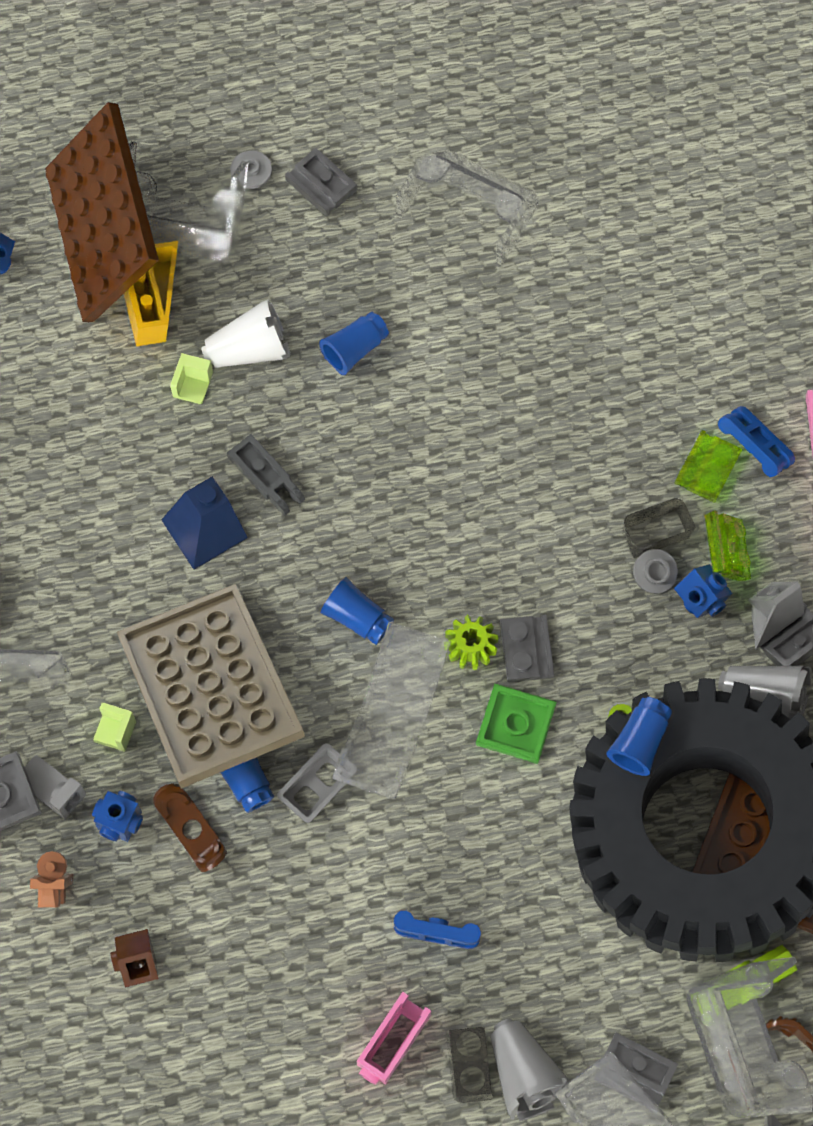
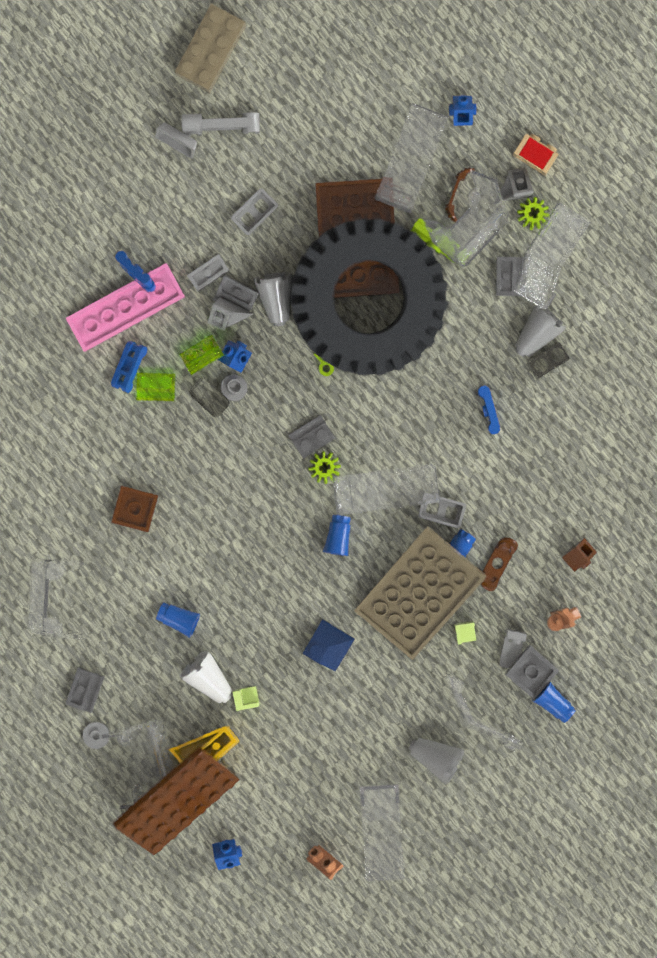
camera: 120 degrees left, 20 degrees up
(122, 825) = (509, 596): blue brick -> none
(264, 472) = (281, 629): dark grey hinge -> none
(372, 1071) = (575, 405): bright pink window -> none
(516, 723) = (356, 422): bright green tile -> none
(543, 357) = (135, 509): none -> reddish brown plate
(641, 737) = (349, 348): blue plant -> none

